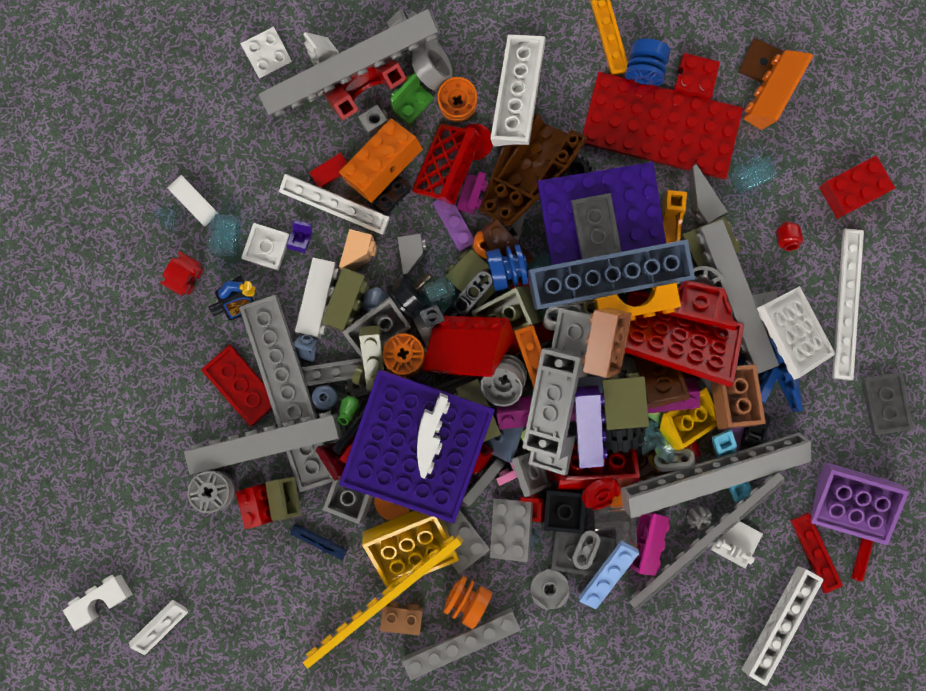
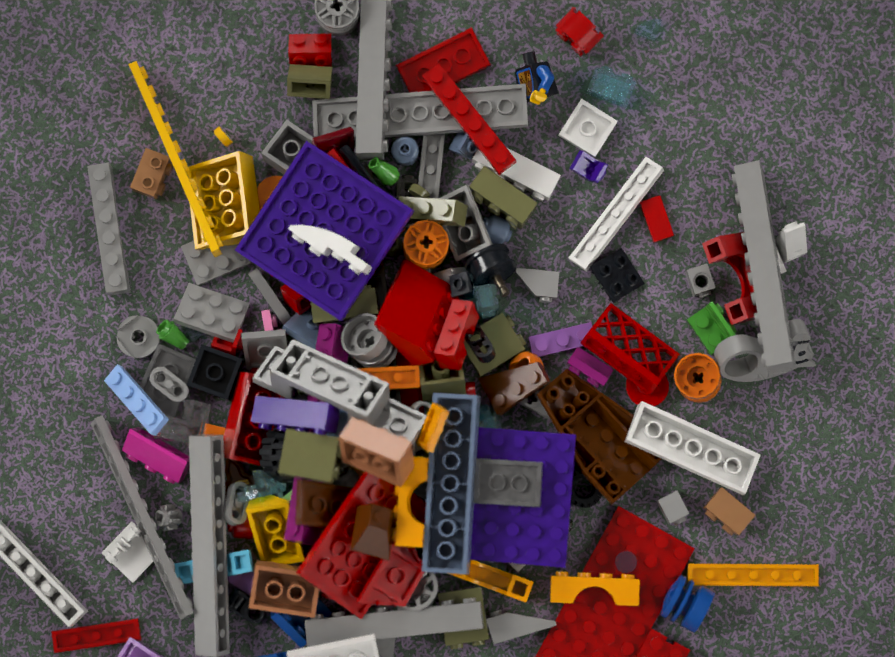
camera: 105 degrees right, 0 degrees up
(192, 200) = (659, 61): white beam -> none
(266, 52) = (809, 181): white hinge -> none
(282, 347) = (469, 119): none -> red plate
(319, 542) = (261, 100): dark blue pin -> none
(352, 563) = (223, 136): none -> yellow tile
(357, 250) = (555, 224): light nougat slope -> none
(381, 160) = (650, 275): orange brick -> none
(467, 602) = (150, 245): orange wheel -> none
(469, 307) = (450, 346): none -> red arch
(507, 267) = (491, 377): blue wheel -> none
(540, 559) = (172, 334): none -> bright green cone
(561, 49) = (728, 511): none -> medium nougat brick
(569, 300) = (432, 427): none -> light orange plate
(571, 95) = (673, 508): none -> light grey brick
(601, 493) = (223, 413): red tile -> none
(627, 121) = (625, 561): none -> tile
(651, 116) = (623, 590): none -> light orange arch
(674, 330) = (373, 531): none -> reddish brown slope

